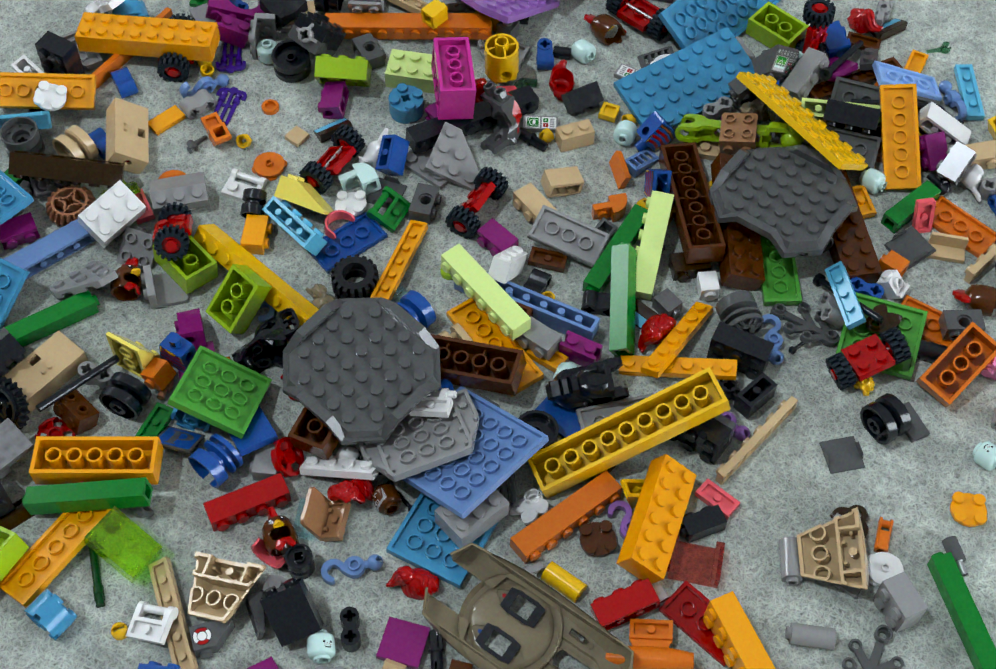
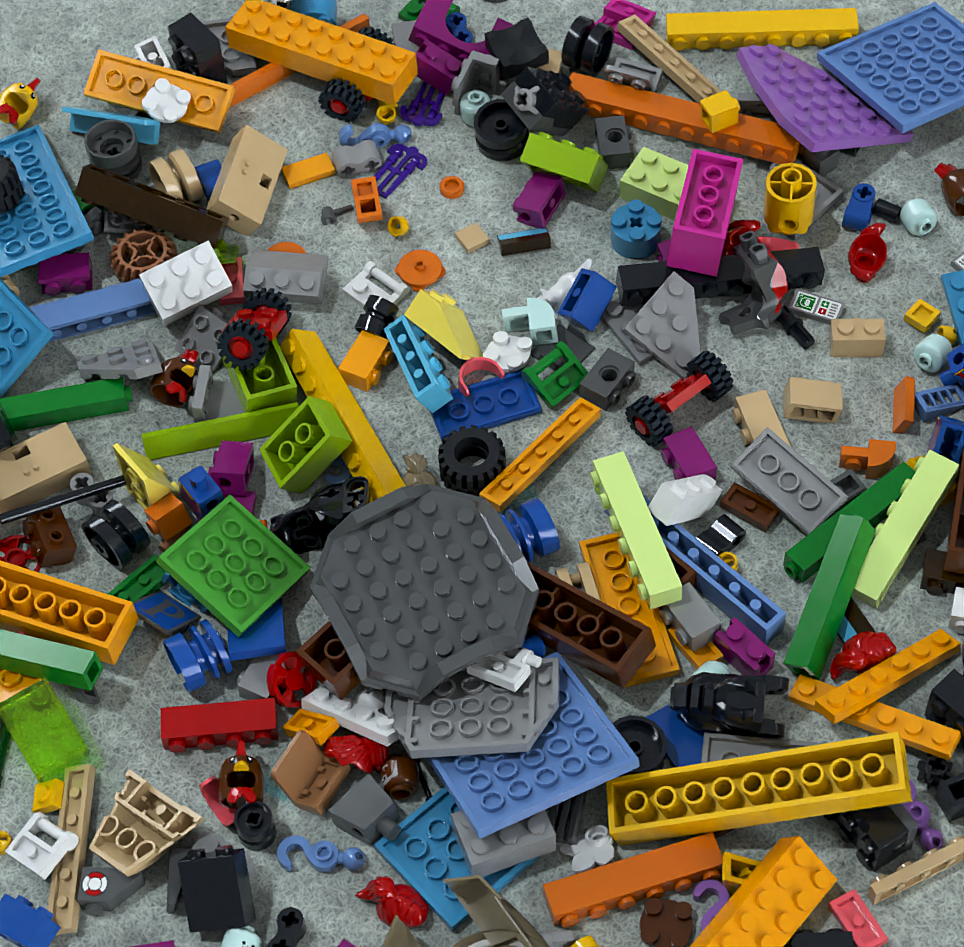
camera: 25 degrees right, 0 degrees up
(124, 82) = (272, 105): blue axle -> none
(143, 588) = (48, 796): none -> yellow plate
(168, 308) = (211, 432): none -> lime tile
(320, 481) = (317, 725): none -> light orange plate
(346, 145) = (534, 270): plate -> none
(373, 529) = (366, 812): none -> dark grey torso
(526, 81) = (819, 241): clear green arm -> none
(546, 135) = (817, 327): yellow hinge -> none
(582, 98) = (889, 285): black brick -> none
(596, 303) = (791, 588): black axle -> none
(667, 303) = (896, 621): flat silver brick -> none

